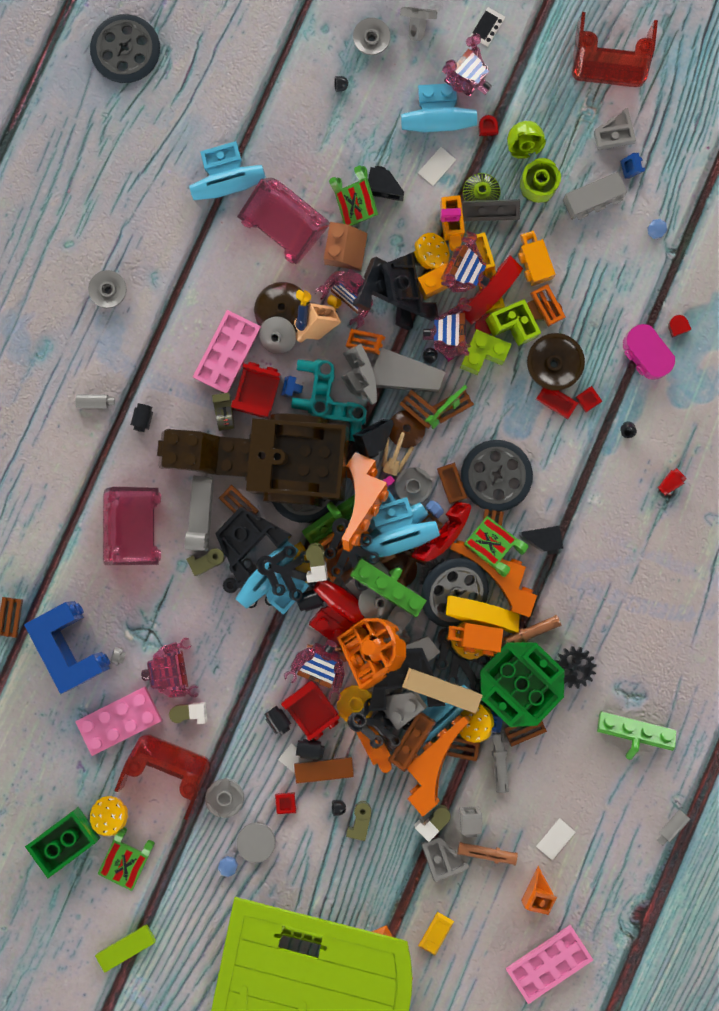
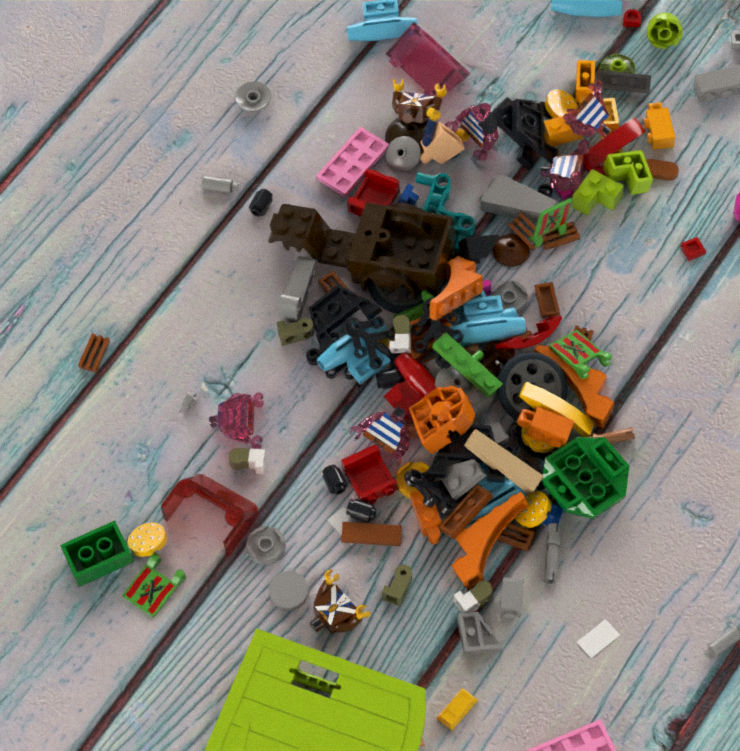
camera: 10 degrees right, 25 degrees down
(55, 652) = (148, 402): blue piece -> none
(118, 721) = (177, 459): bright pink plate -> none
(125, 948) = (133, 669): lime tile -> none
(130, 526) = (229, 287): clear pink windscreen -> none
(223, 411) = (339, 207): olive leg -> none
(227, 866) = (255, 608): medium blue tile -> none
(280, 278) = (414, 106): none -> reddish brown torso
(285, 803) = (326, 559): red tile -> none
(305, 859) = (335, 609): none -> torso
(338, 807) = (377, 570): black hinge -> none
(345, 246) = (480, 88): nougat slope -> none
(355, 200) = (498, 57): bright green flag -> none
(361, 378) = (475, 195): light grey slope -> none
(377, 344) = (484, 170): orange tile -> none
(384, 184) = (526, 49): black slope -> none
(392, 465) = (492, 273): tan plant -> none
(435, 509) = (529, 319): medium blue tile -> none
(437, 166) = (579, 44): white sticker -> none
(450, 215) = (582, 71): dark pink tile -> none
(496, 855) = (522, 636): nougat pin -> none
(522, 473) = (603, 319): wedge -> none
(526, 737) = (582, 521): dark orange tile -> none
(538, 894) = (570, 686): orange slope -> none
(541, 309) = (668, 175): orange tile -> none
(544, 539) = (629, 358): black slope -> none
(550, 180) = (672, 63): lime brick -> none
(557, 402) = (661, 246): red tile -> none
(564, 352) = (665, 200): dark brown dish -> none
(586, 670) = (652, 481): black gear -> none
(626, 430) = (725, 280): black hinge -> none
(636, 731) = (696, 546): plate -> none

